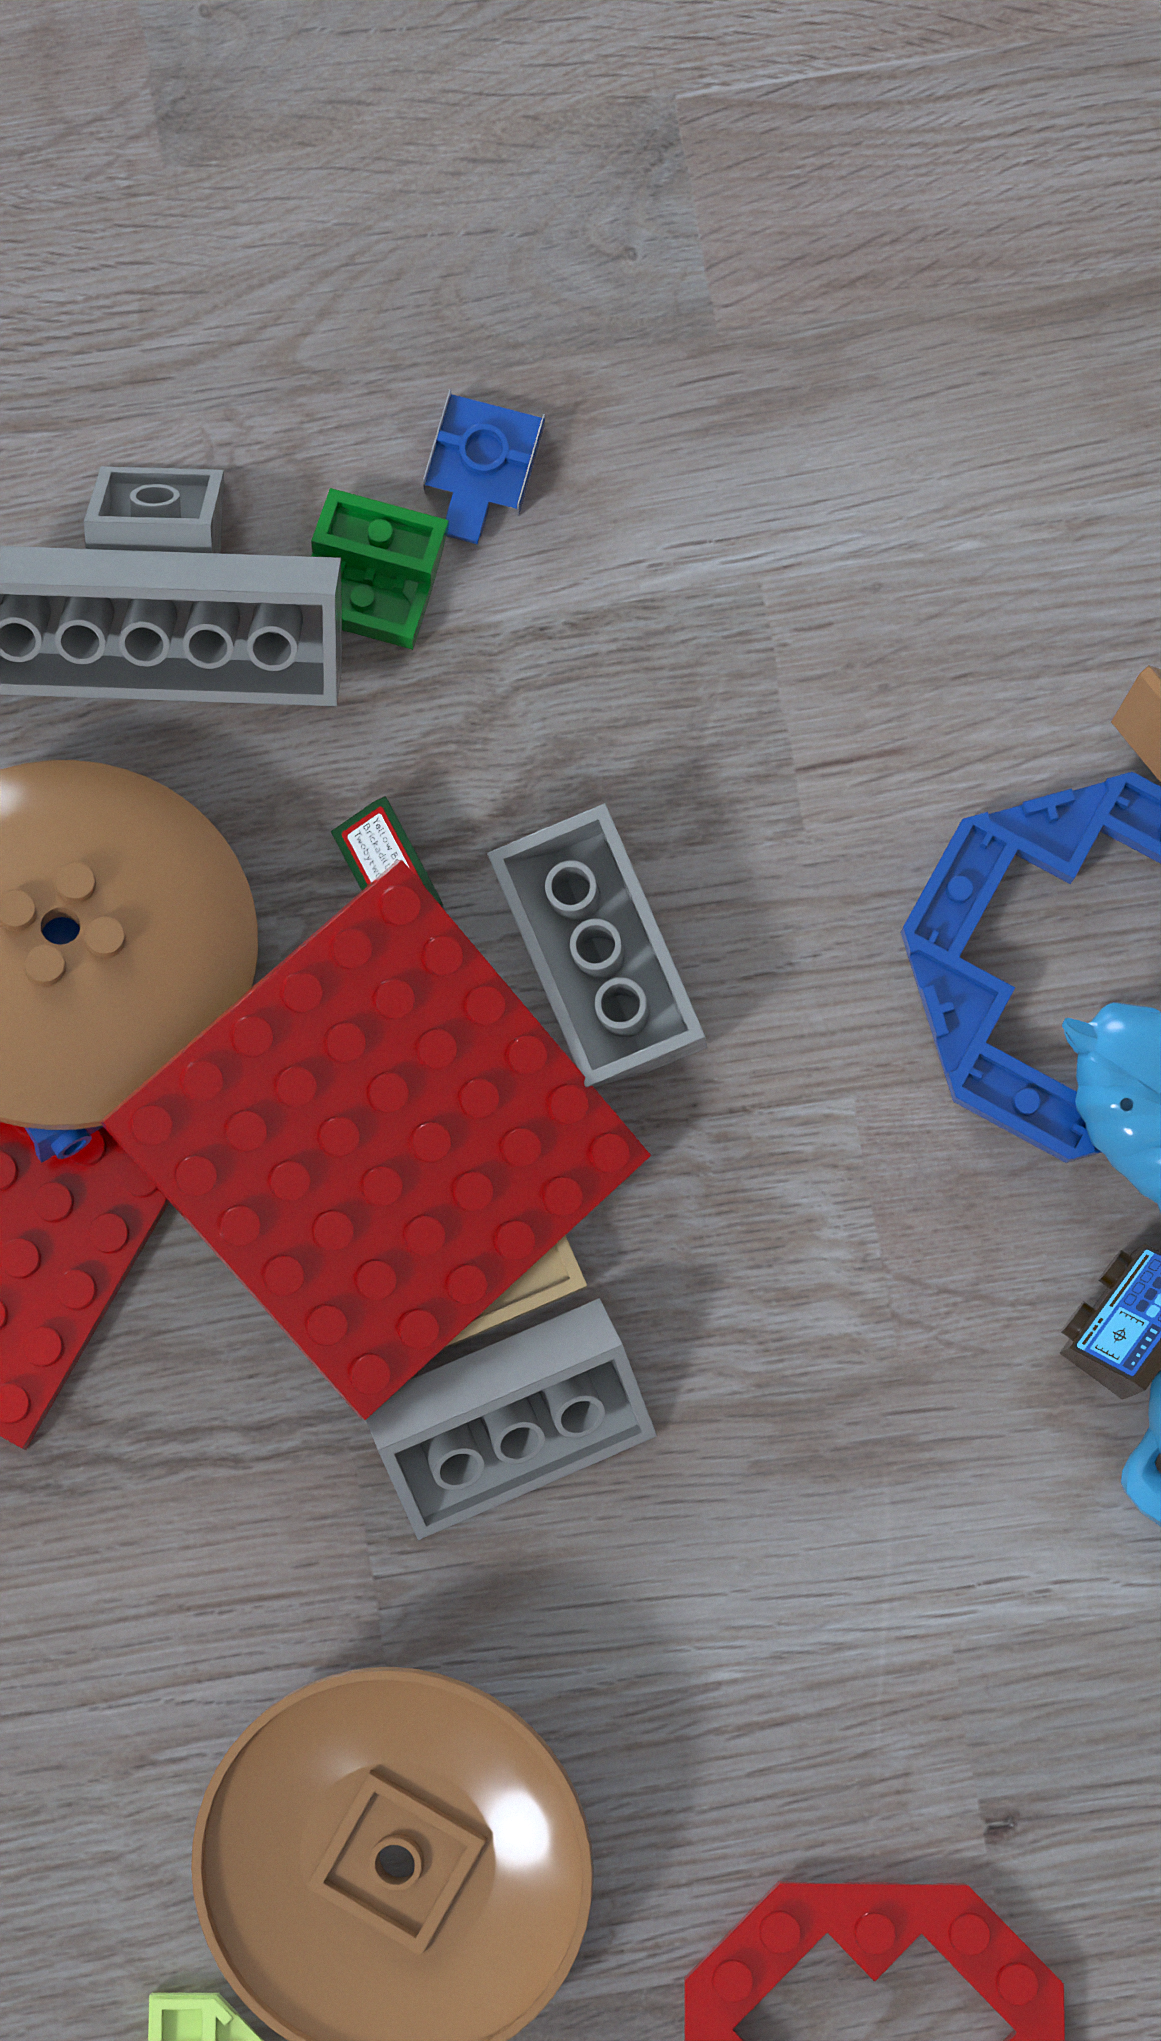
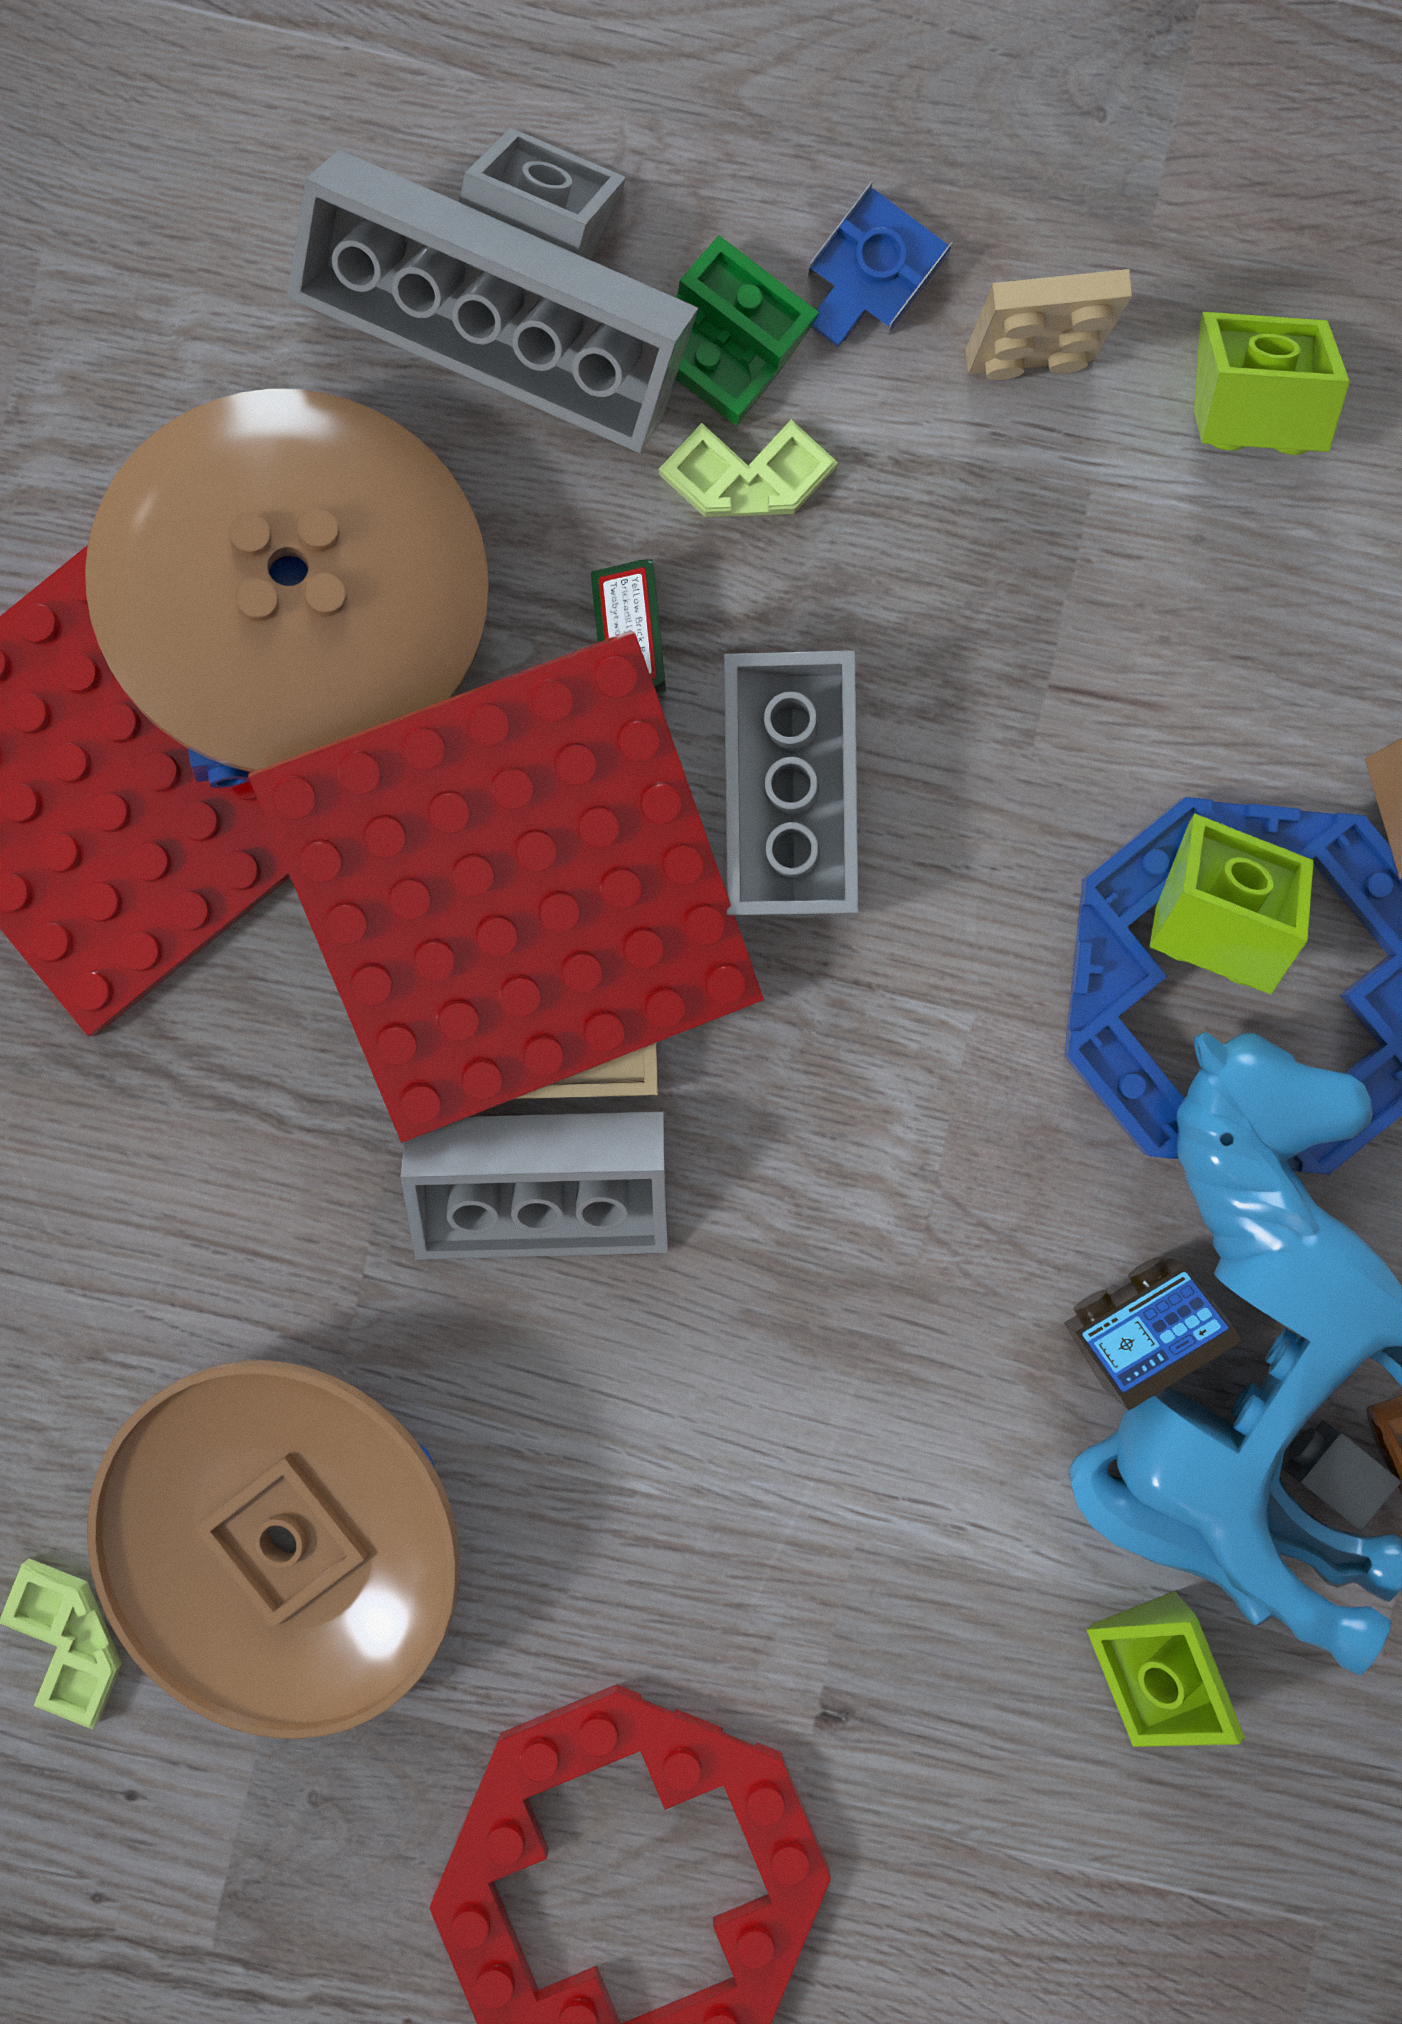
camera: 20 degrees right, 10 degrees up
(424, 706) = (725, 486): none -> yellowish green tile
(658, 453) = (1046, 323): none -> tan plate
(878, 427) = (1268, 383): none -> lime slope
(1046, 897) = (1234, 905): none -> lime slope

